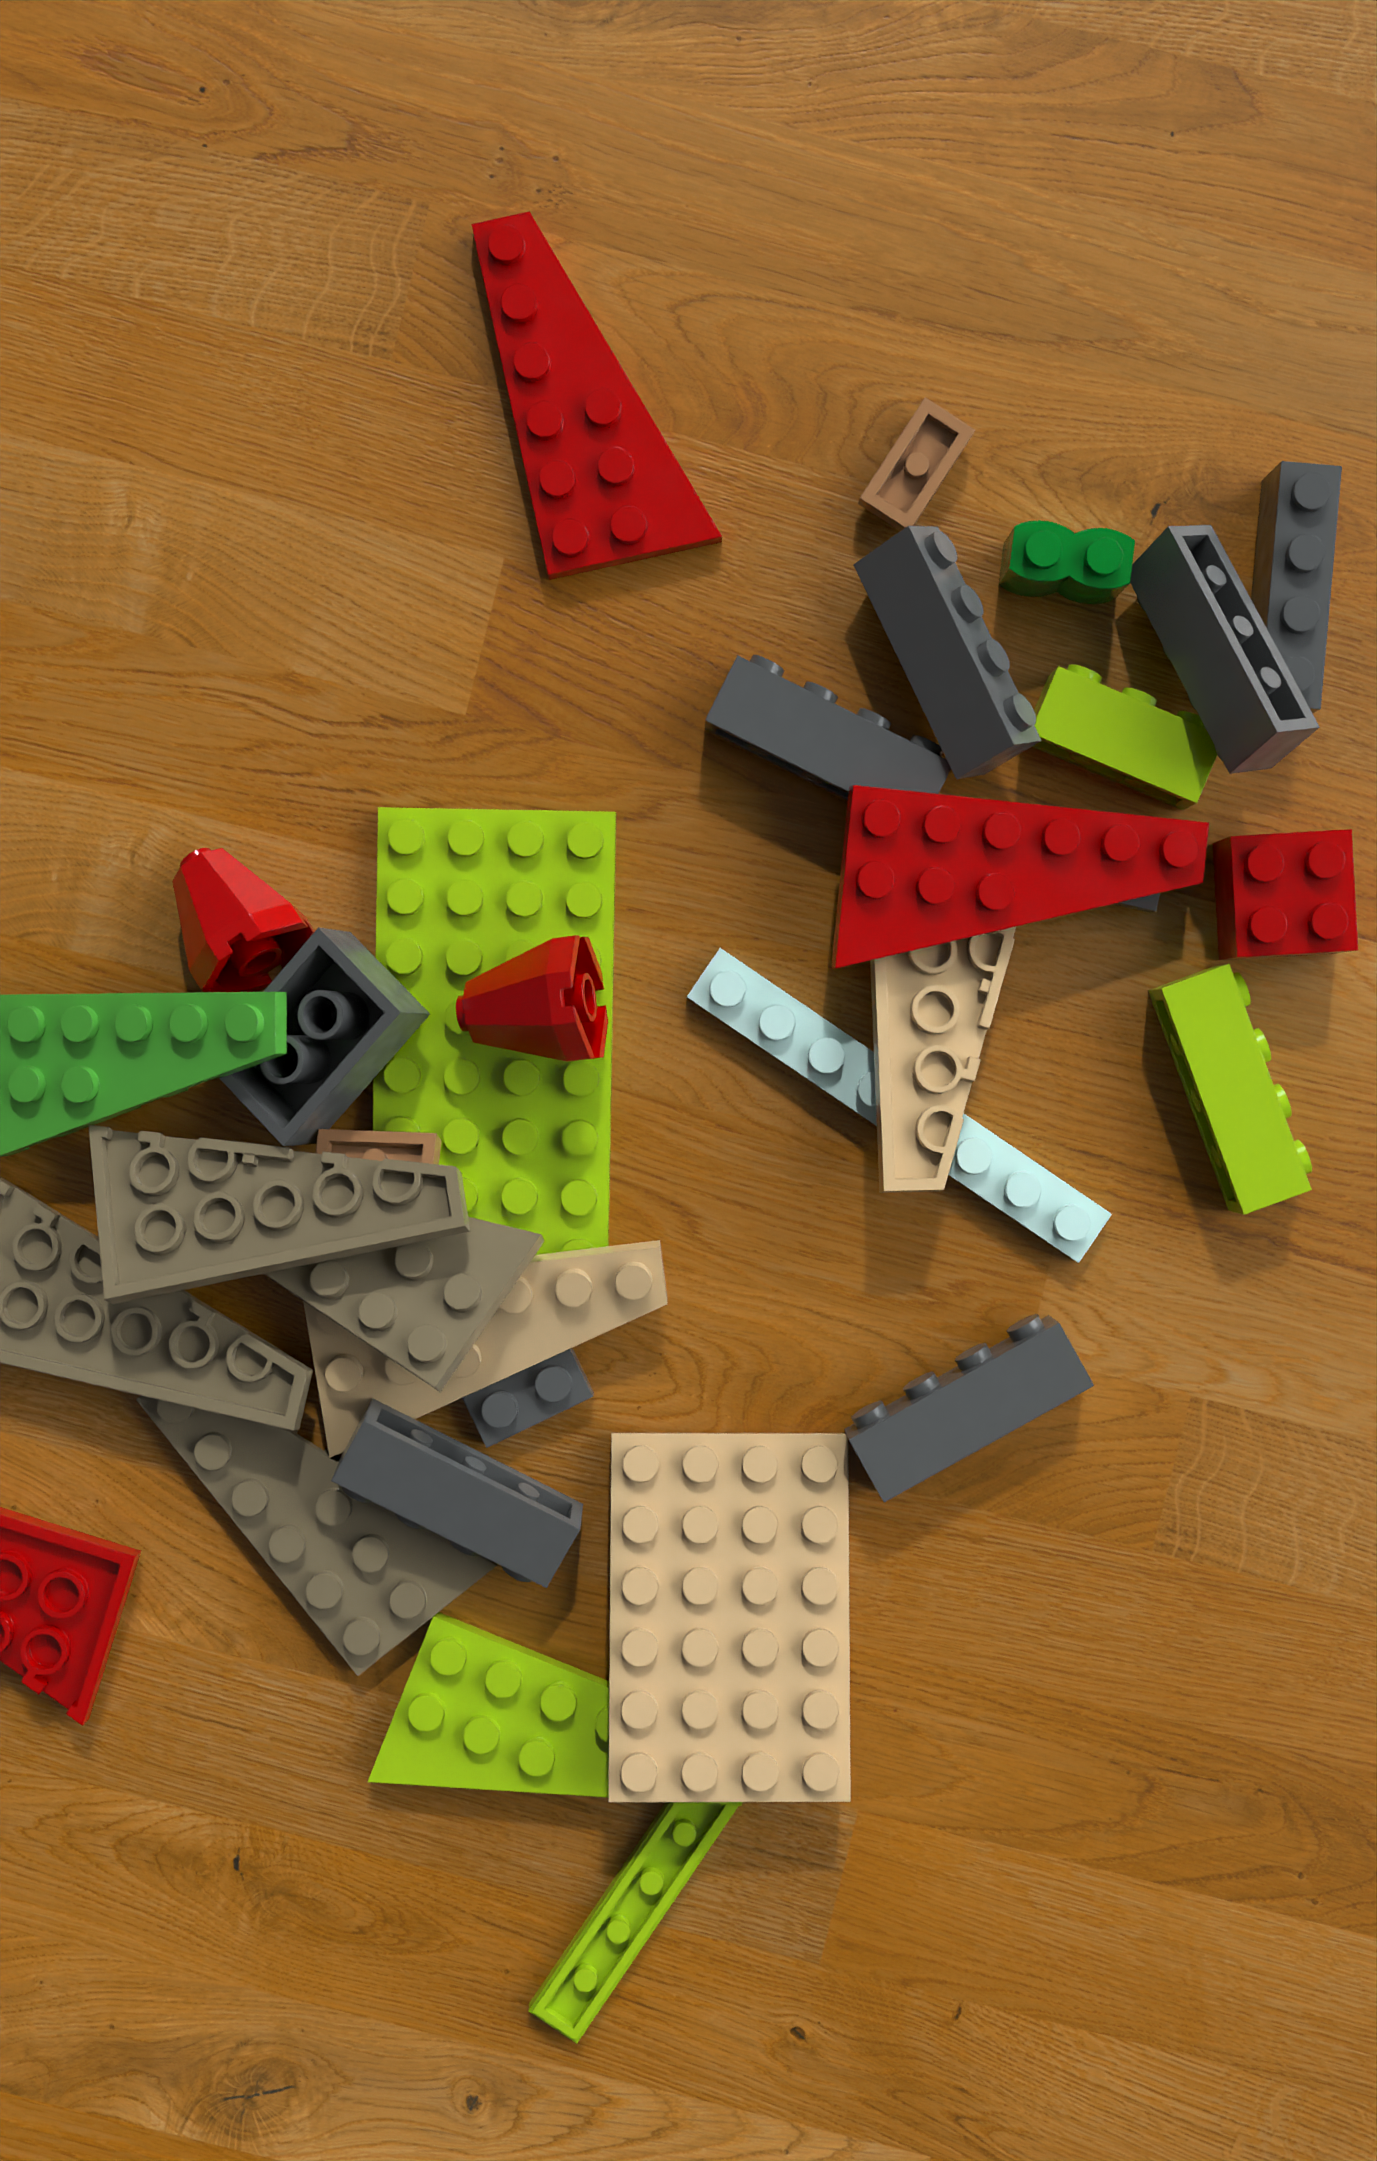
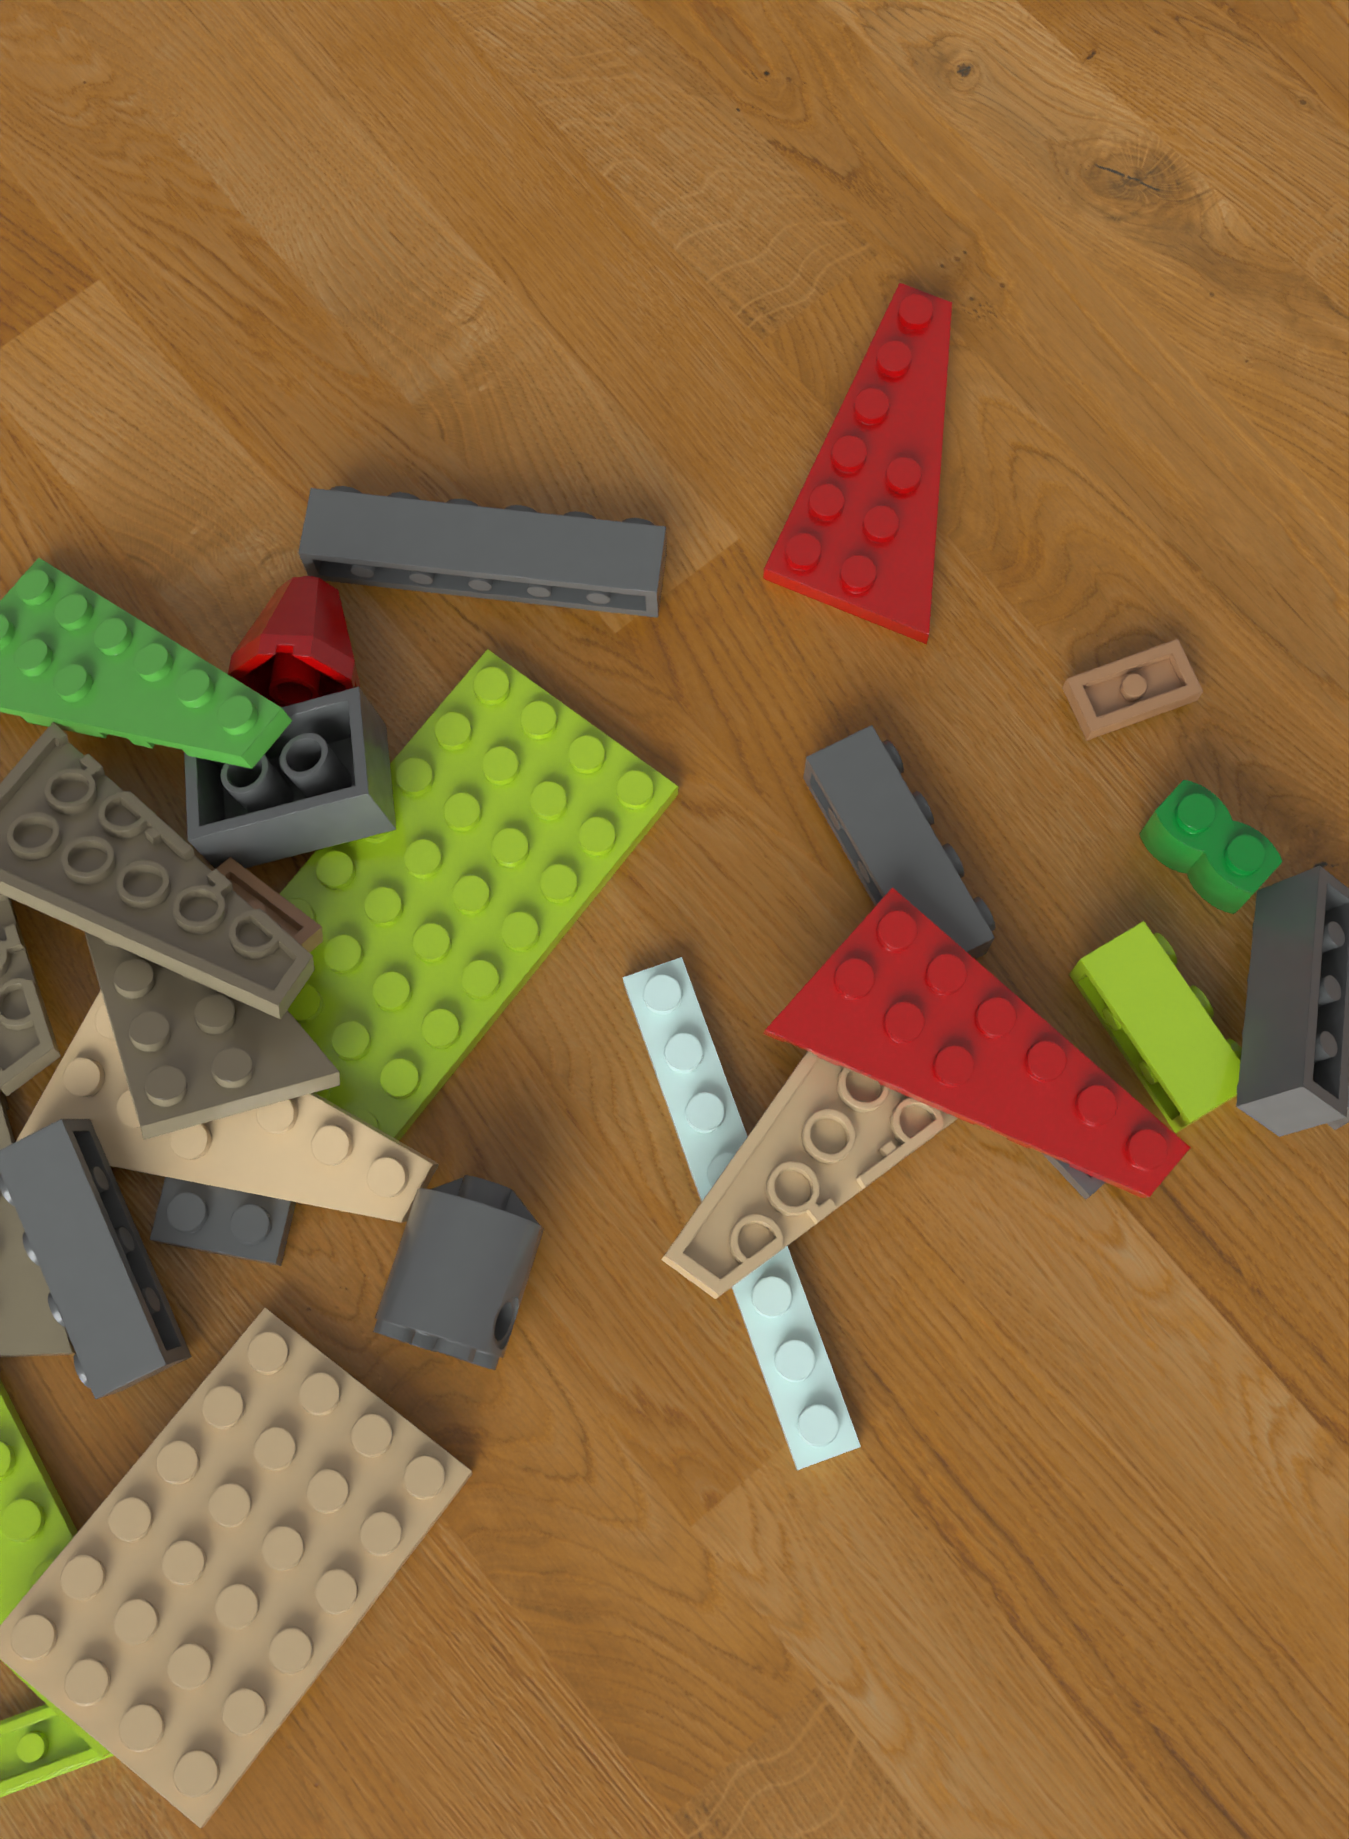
camera: 40 degrees right, 15 degrees down
(310, 726) = (484, 551): none -> dark grey brick
(539, 1003) = (495, 881): red cone -> none
(738, 1307) = (460, 1271): none -> dark grey cylinder
(948, 651) = (1054, 846): dark grey brick -> none
(967, 1406) = (597, 1527): dark grey brick -> none
(1231, 1089) = (1052, 1410): lime brick -> none
(1285, 894) = (1220, 1267): red brick -> none

